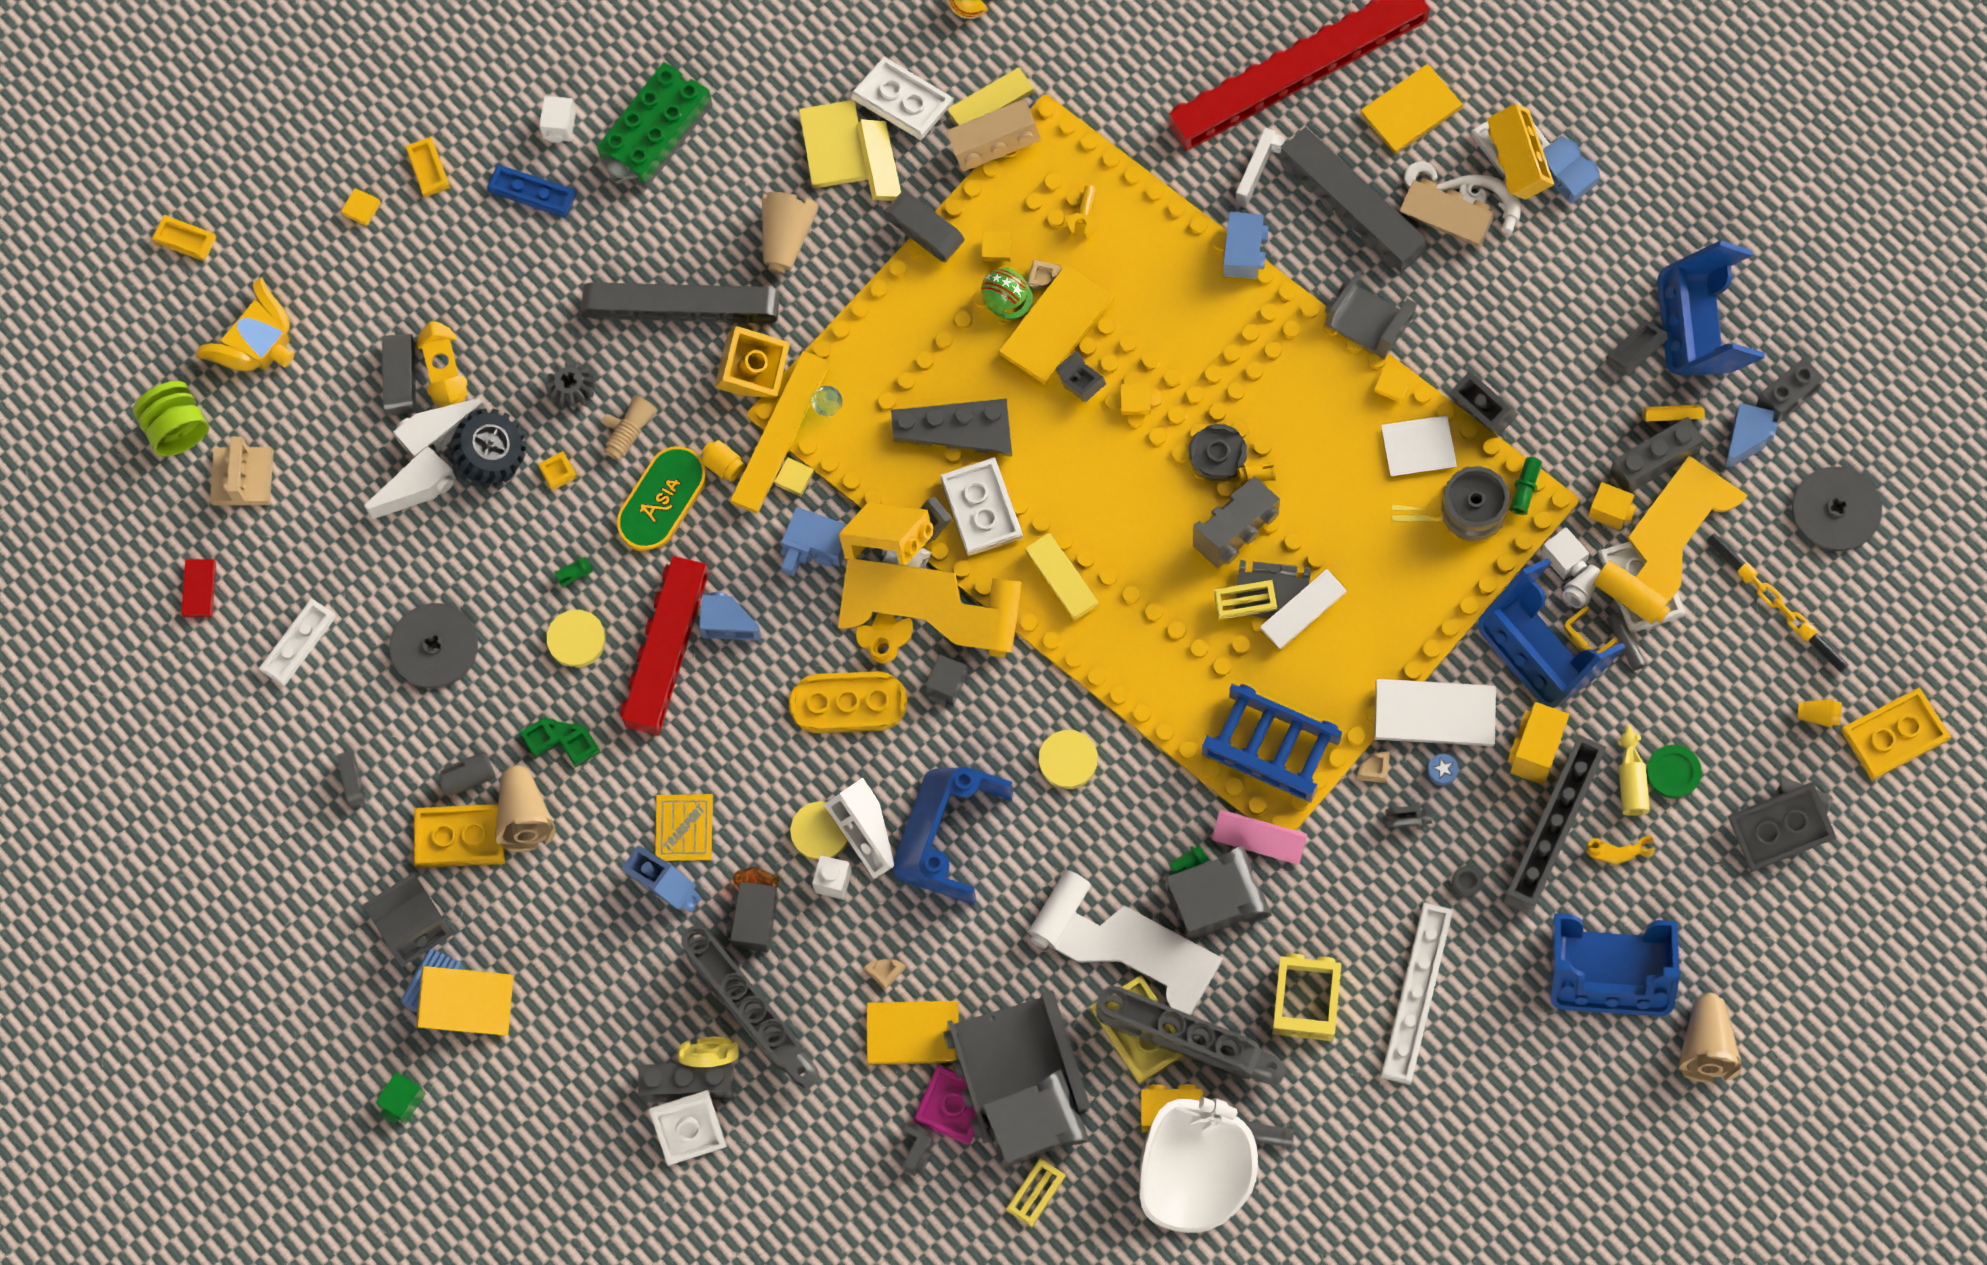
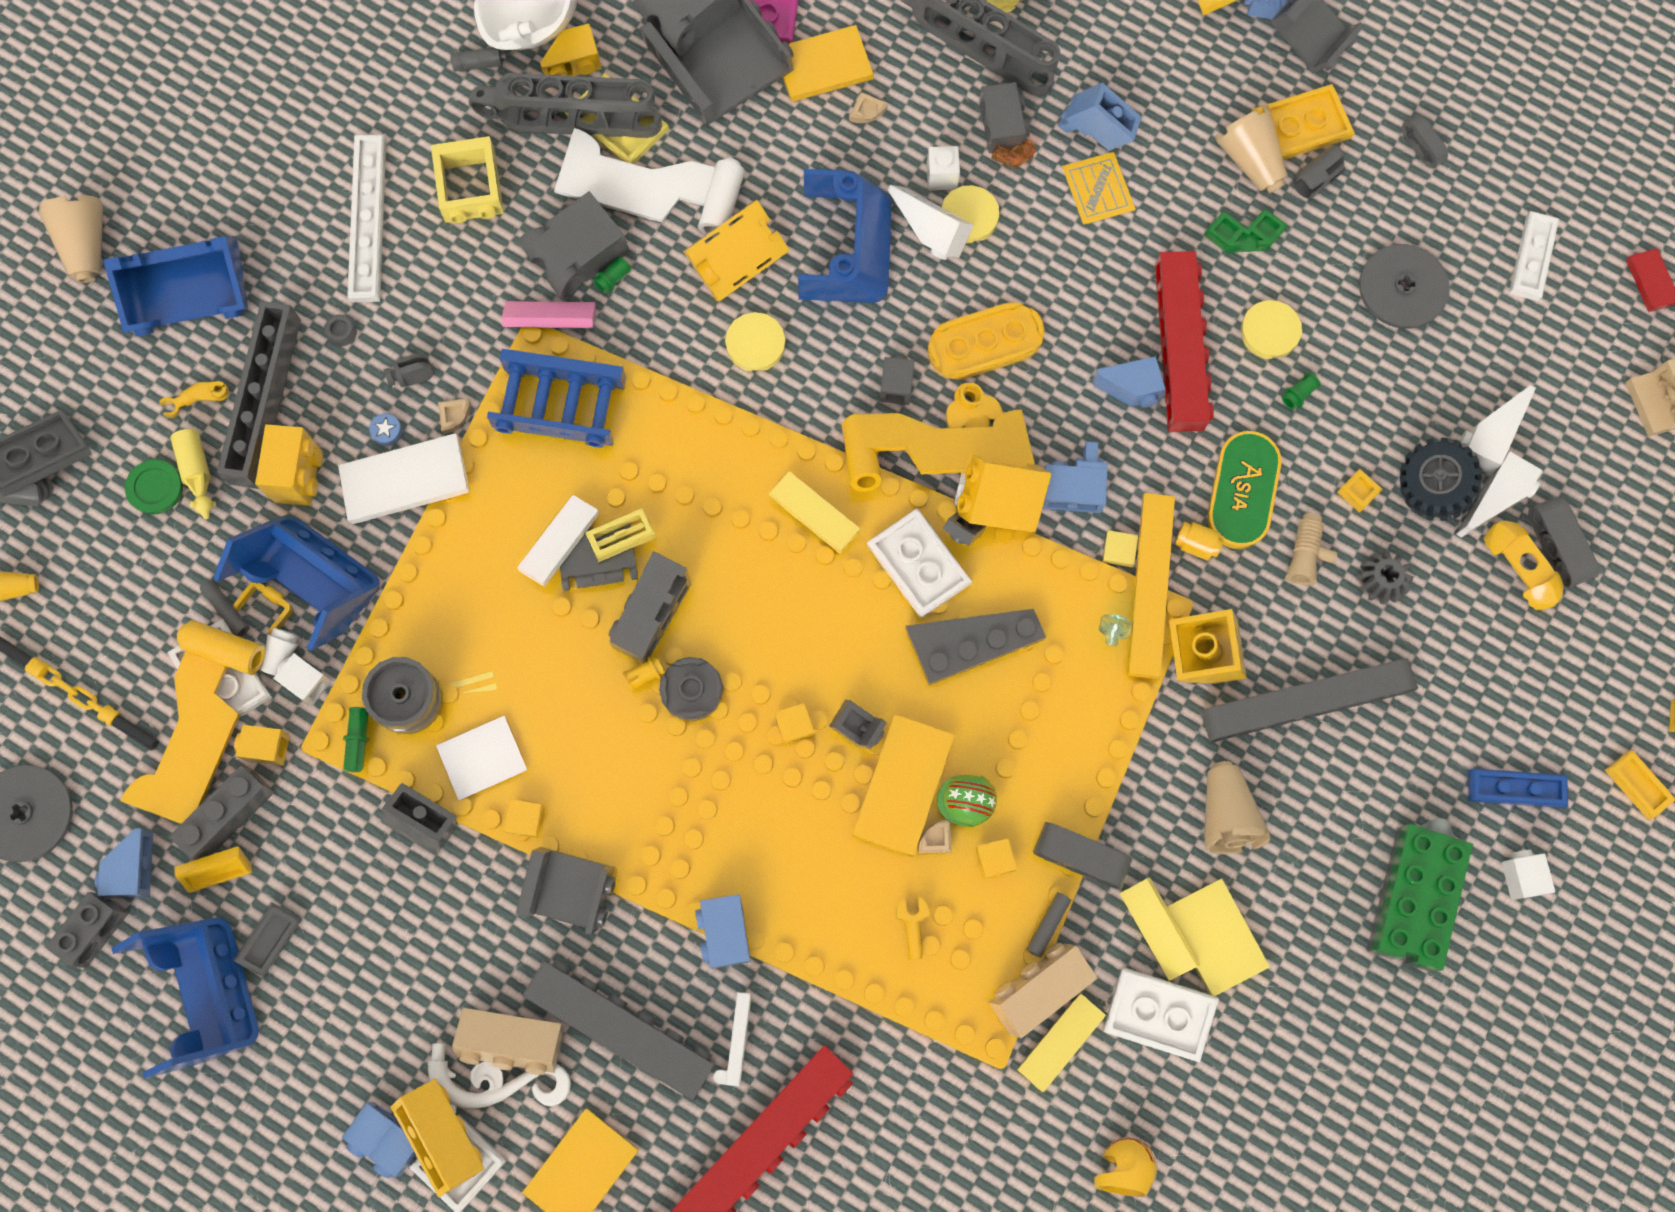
camera: 155 degrees right, 5 degrees up
(970, 184) = (1048, 924): none -> dark grey piece
(1060, 847) = (736, 251): none -> yellow piece

